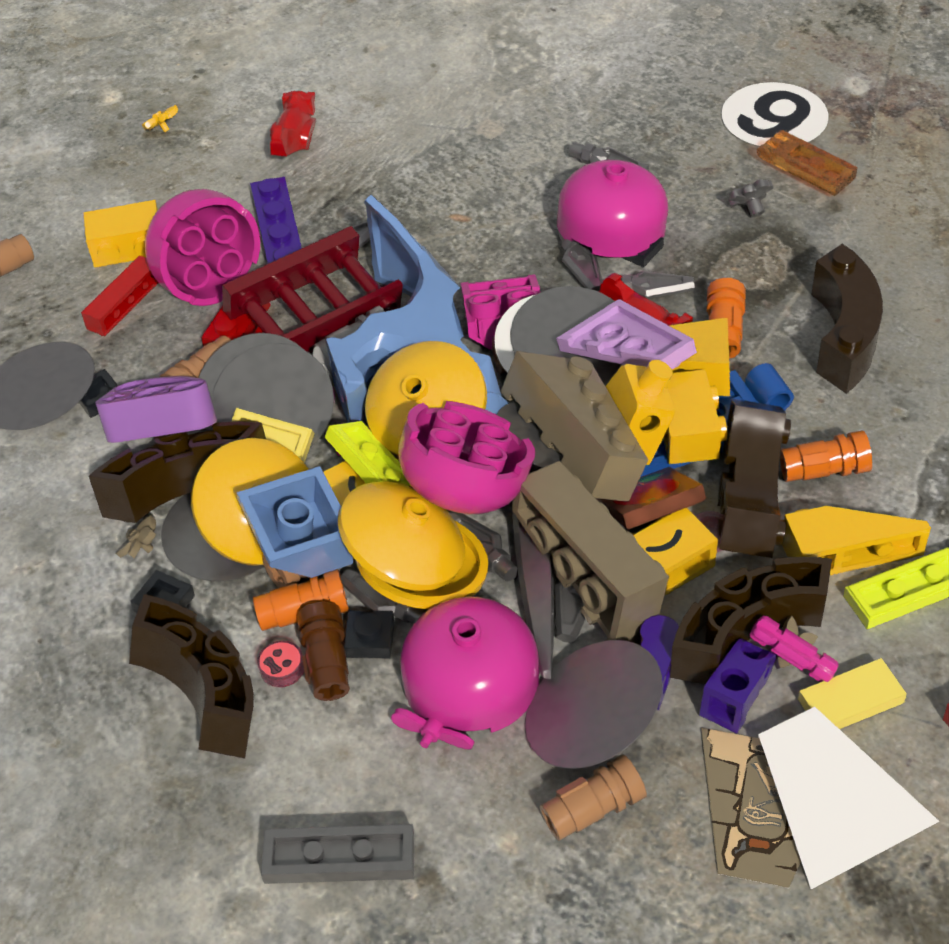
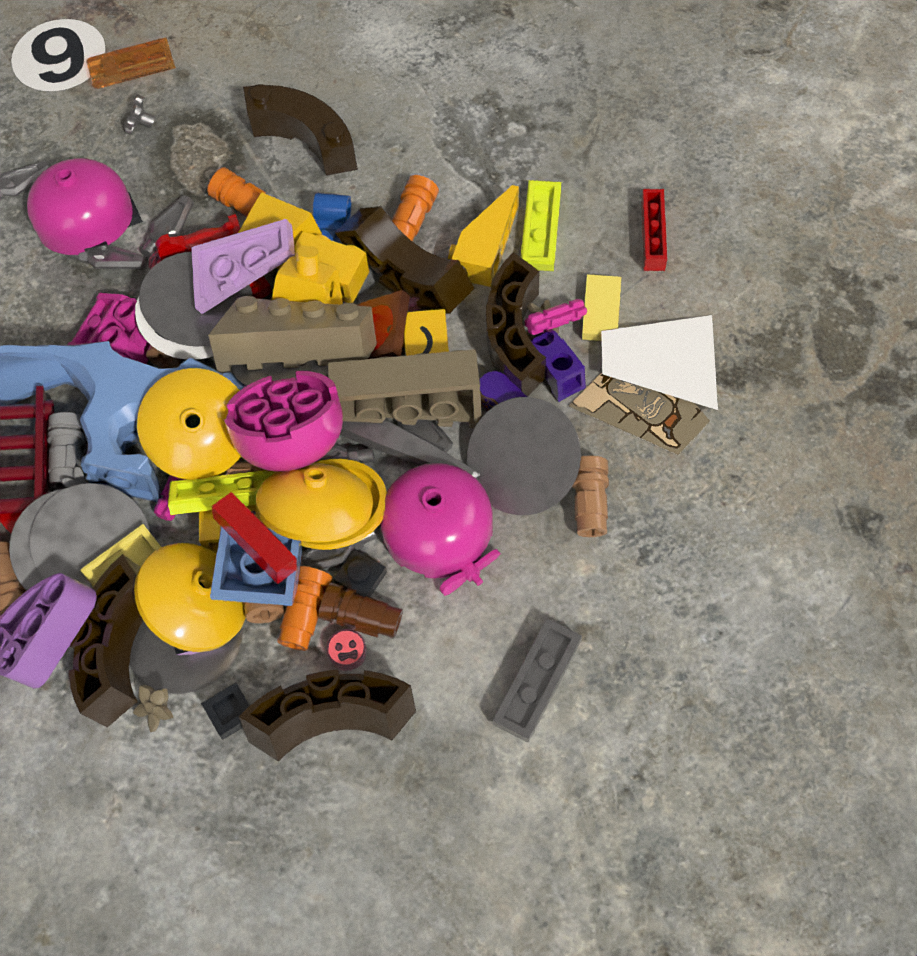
camera: 60 degrees left, 15 degrees up
(316, 494) = (254, 537): none -> red piece

